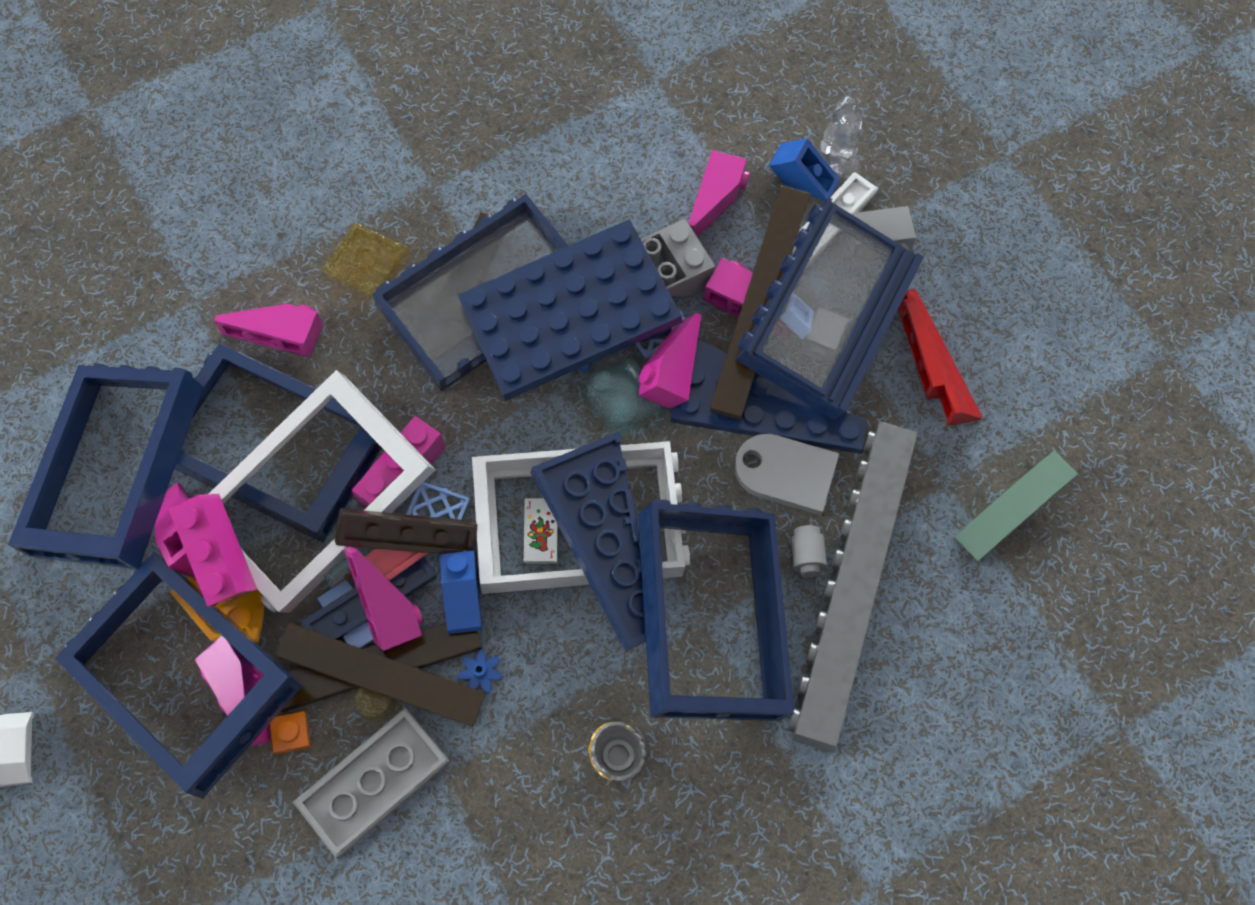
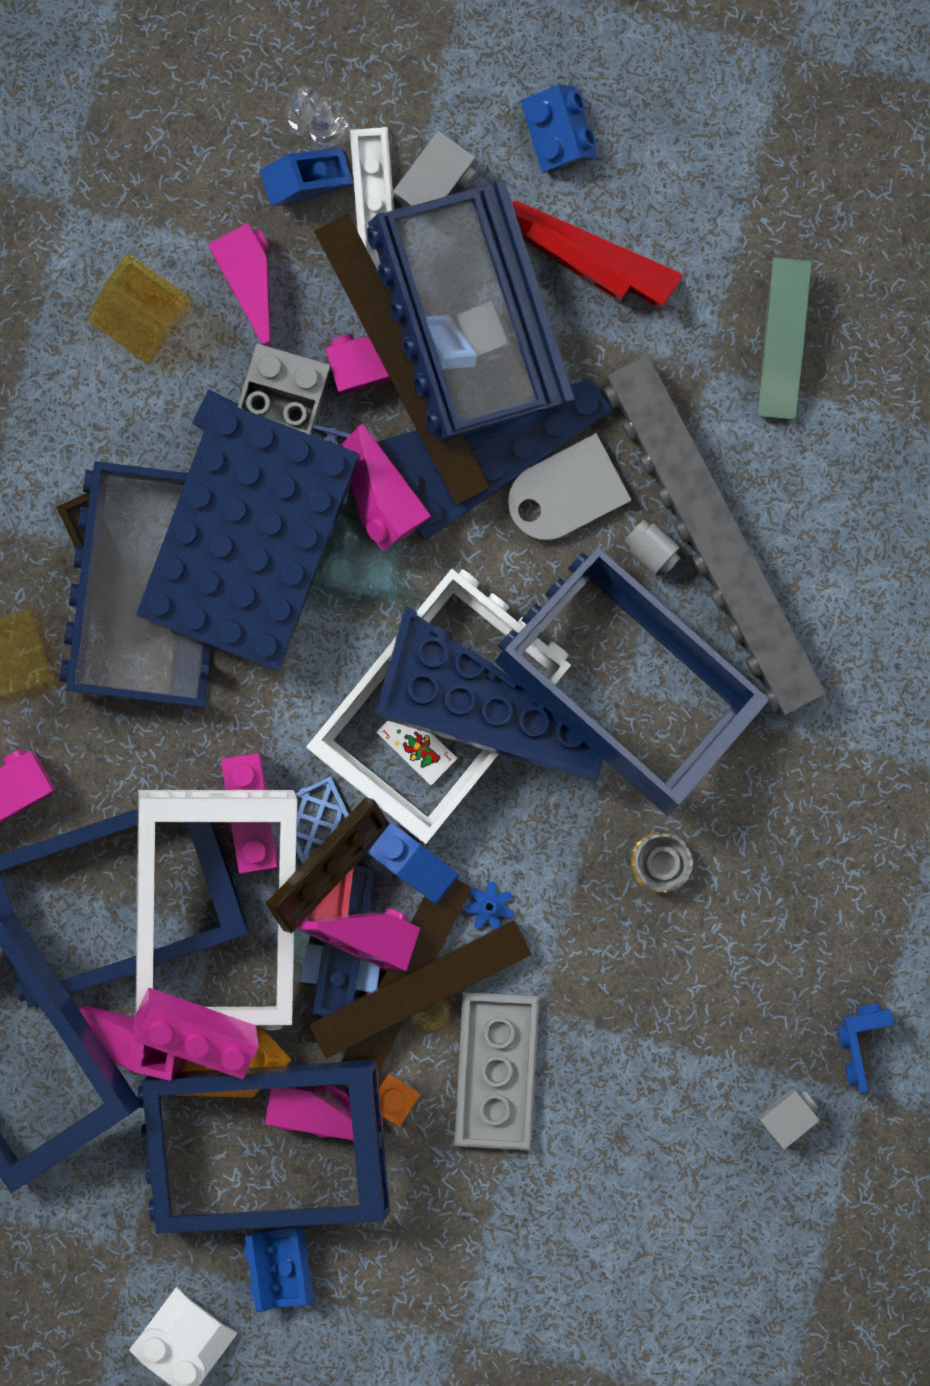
camera: 45 degrees left, 20 degrees up
(98, 763) = (279, 1268): none -> blue bracket
(639, 151) = (139, 308): none -> clear yellow slope
(983, 272) = (559, 127): none -> blue bracket

